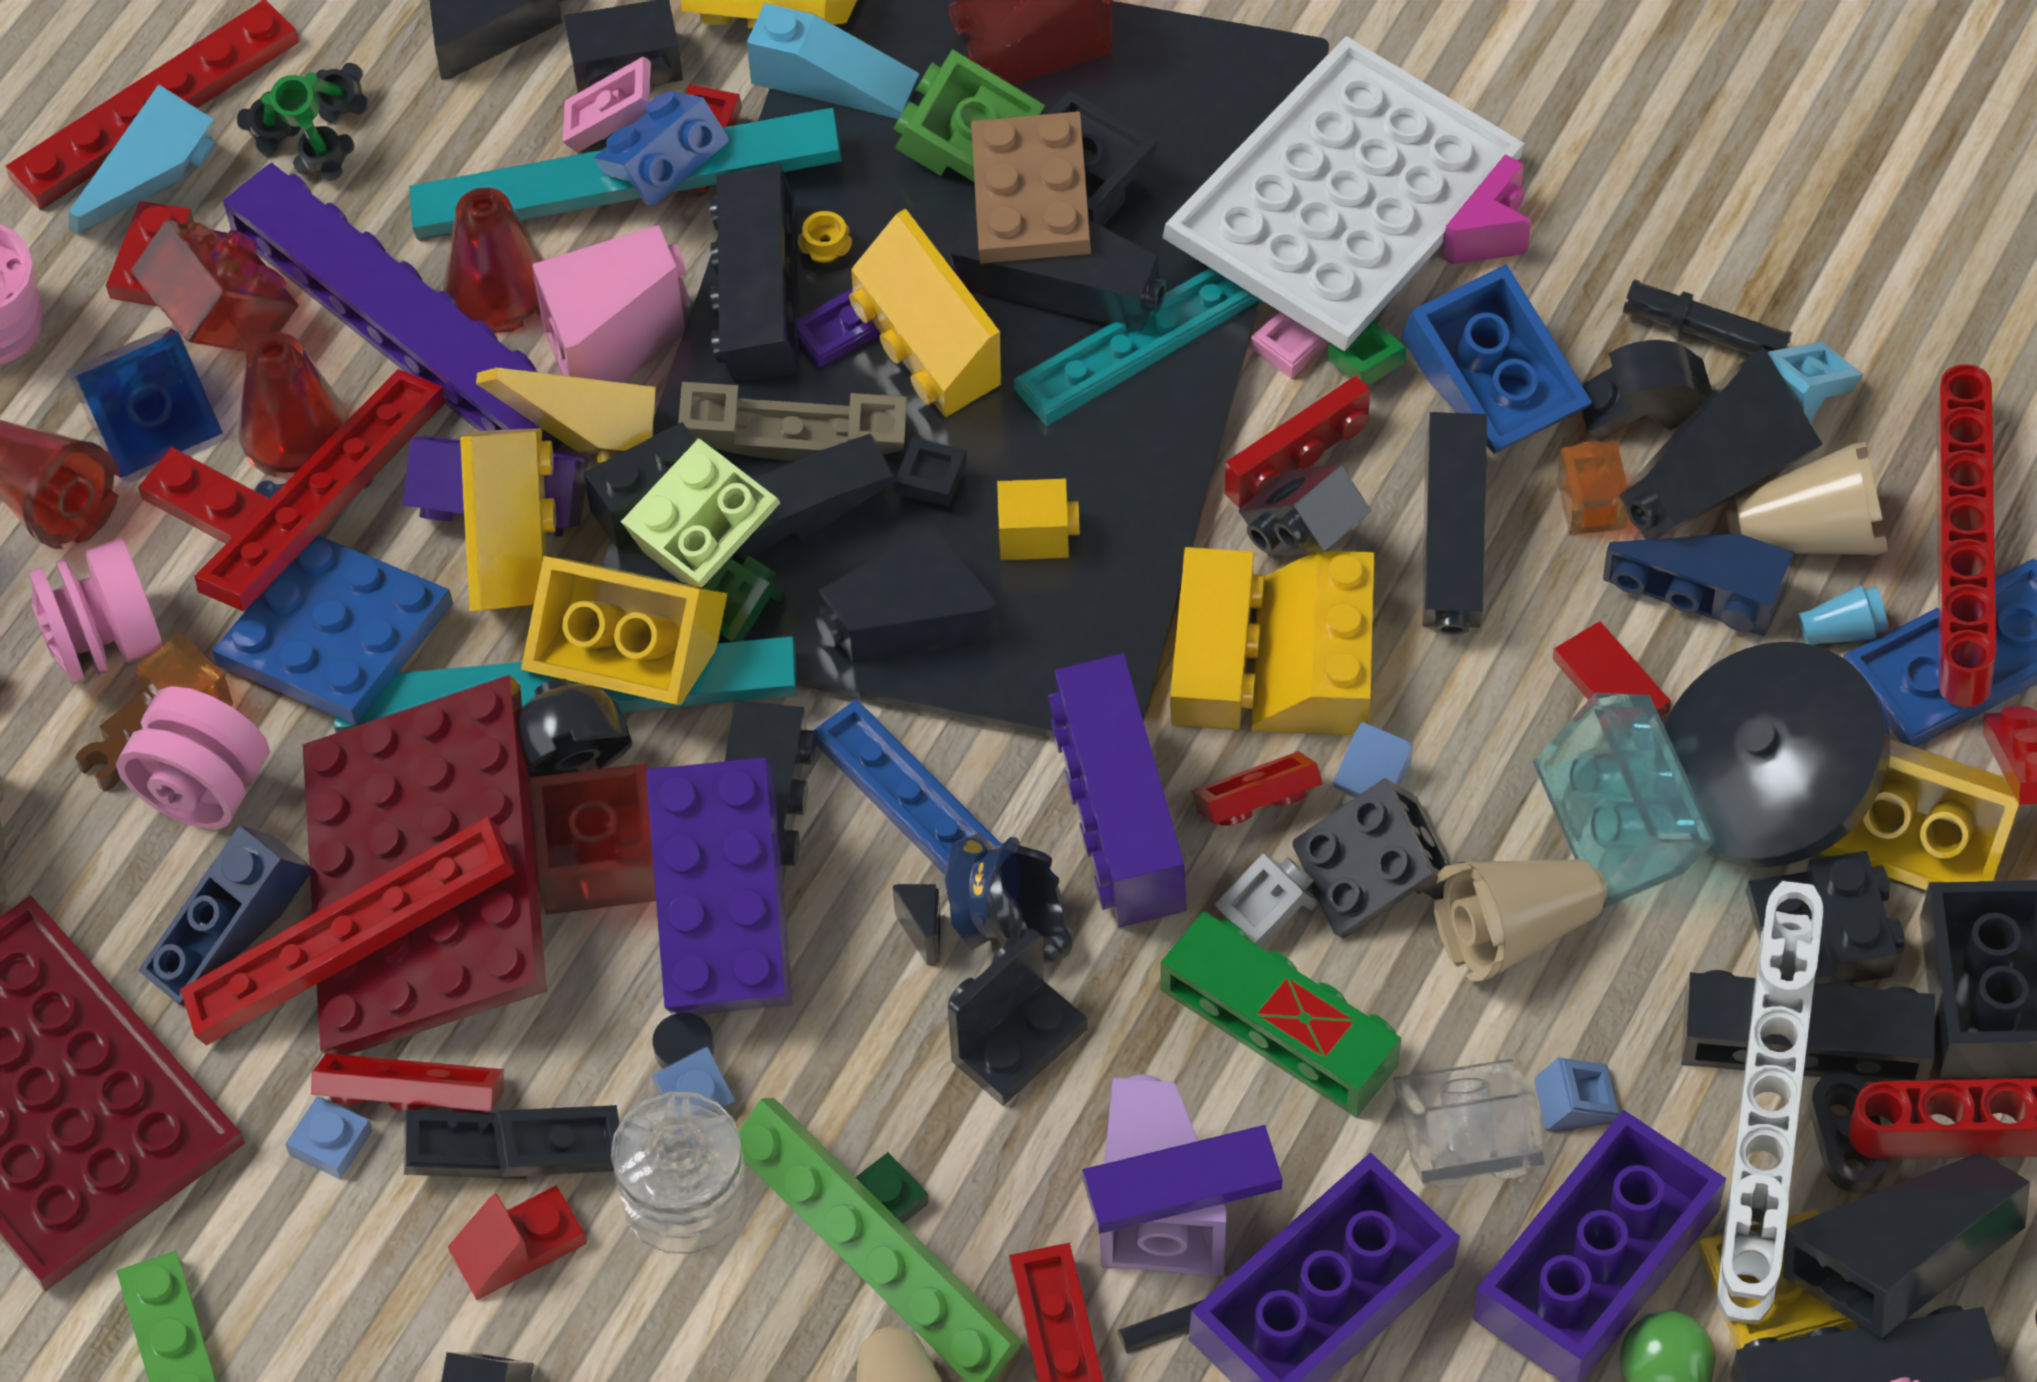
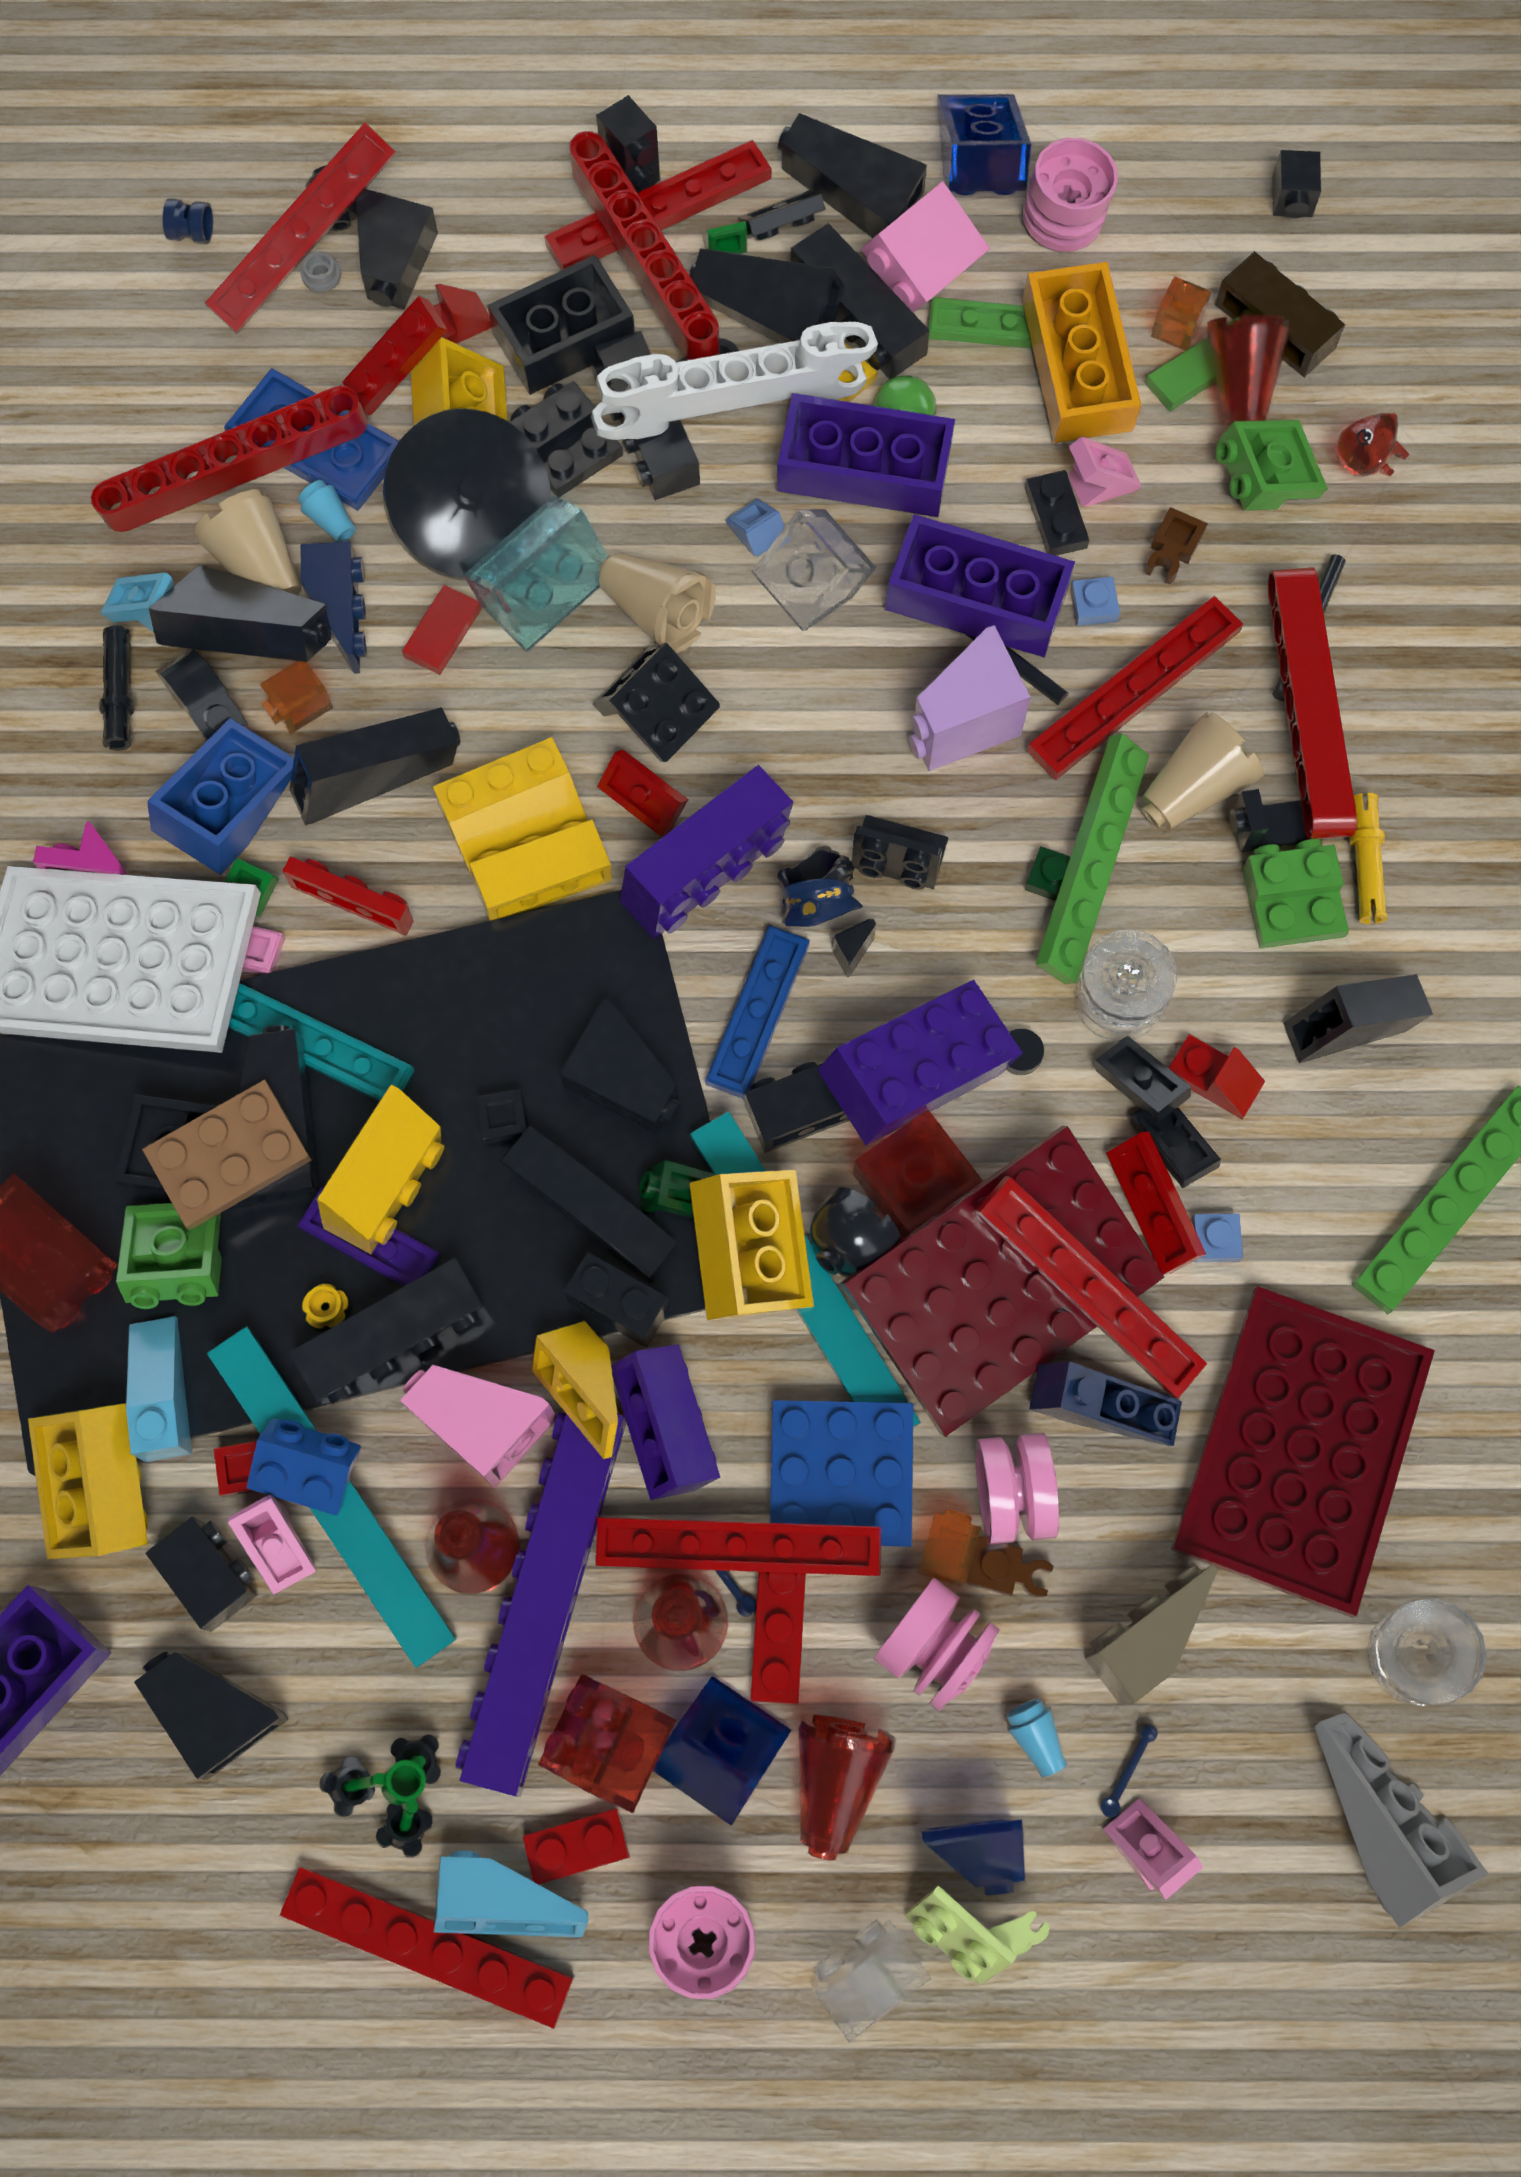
camera: 120 degrees left, 15 degrees up
(505, 515) = (708, 1373): yellow slope -> none
(694, 1074) = (1052, 1023): medium blue plate -> none
(698, 515) = (645, 1220): yellowish green slope -> none
(787, 428) = (507, 1231): dark tan slope -> none
(1035, 519) = (509, 1023): yellow brick -> none
(1182, 1179) = (985, 655): dark purple tile -> none
(1267, 897) = (721, 748): light grey bracket -> none
(1280, 1013) = (800, 702): green brick -> none
(1304, 511) = (405, 867): black brick -> none
(1372, 758) = (585, 736): medium blue slope -> none

